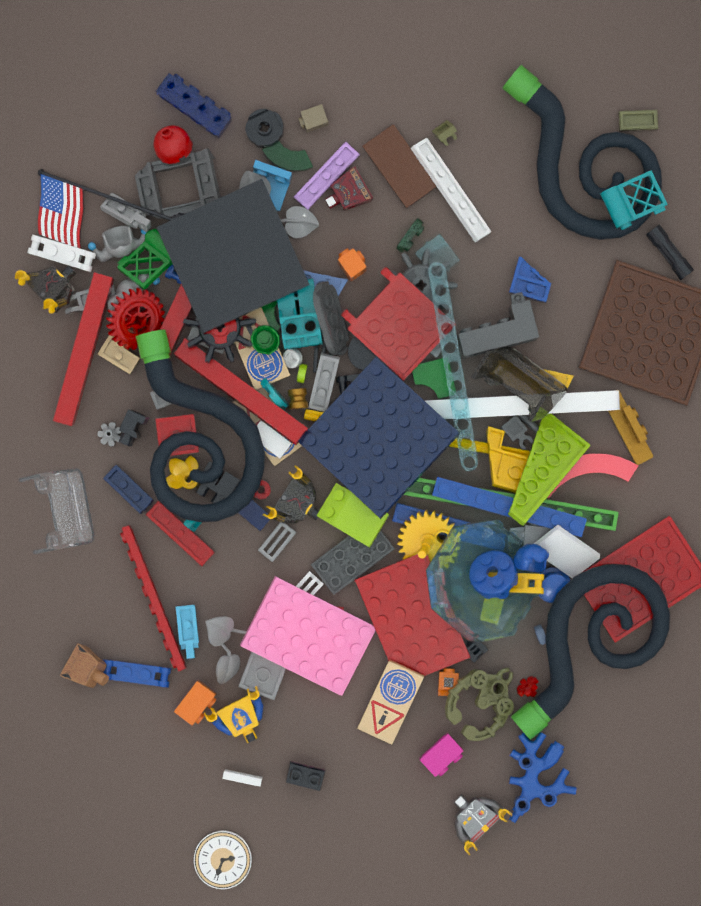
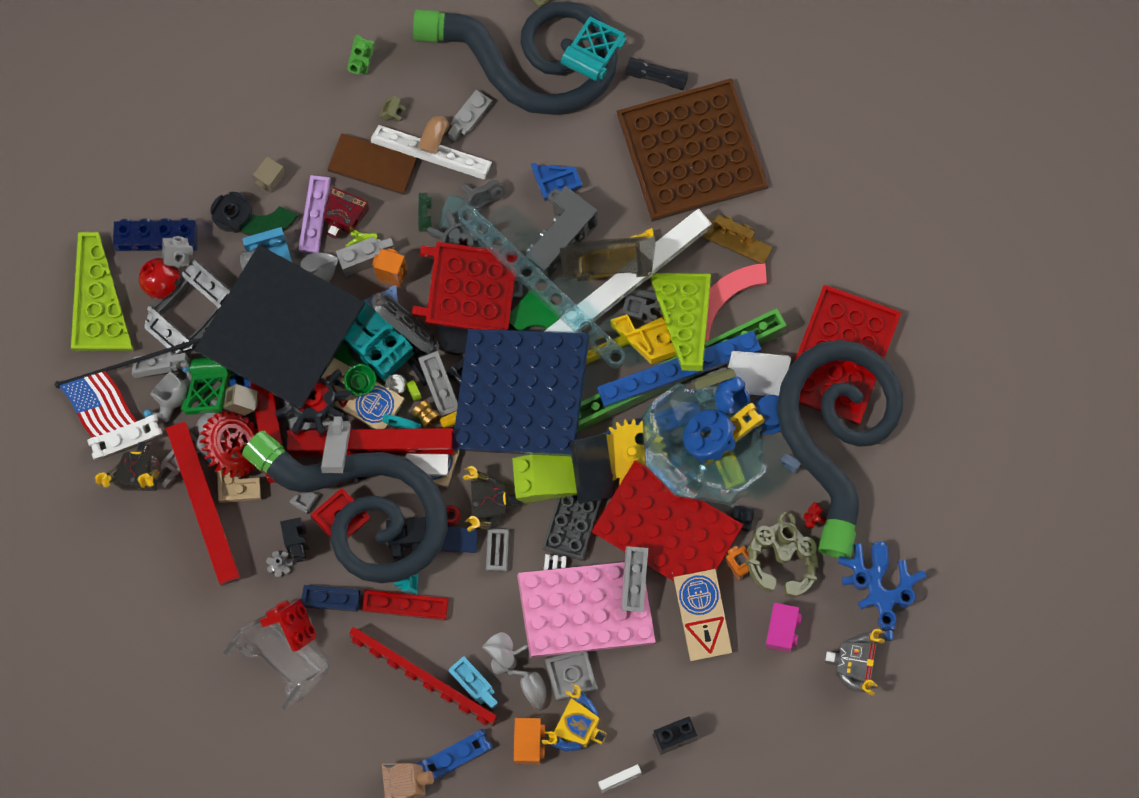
camera: 30 degrees left, 15 degrees down
(87, 489) = (293, 621): none -> red bracket
(110, 132) = (96, 308): none -> lime wing
(164, 290) = (240, 399): none -> dark tan brick
(180, 471) = (367, 548): yellow plate -> none
(198, 134) = (176, 251): none -> light grey brick
(209, 381) = (336, 446): none -> light grey hinge
(339, 237) = (361, 255): none -> light grey hinge
(348, 219) = (360, 237): none -> lime bar
(358, 642) = (634, 579): none -> light grey hinge
(388, 535) = (592, 468): none -> black tile
(451, 71) = (360, 55): none -> bright green hips
(459, 254) = (482, 195): none -> flat silver piece
(462, 179) = (433, 133): none -> medium nougat cylinder
(502, 180) = (469, 115): none -> light grey hinge
(526, 537) = (713, 378): none -> olive tile

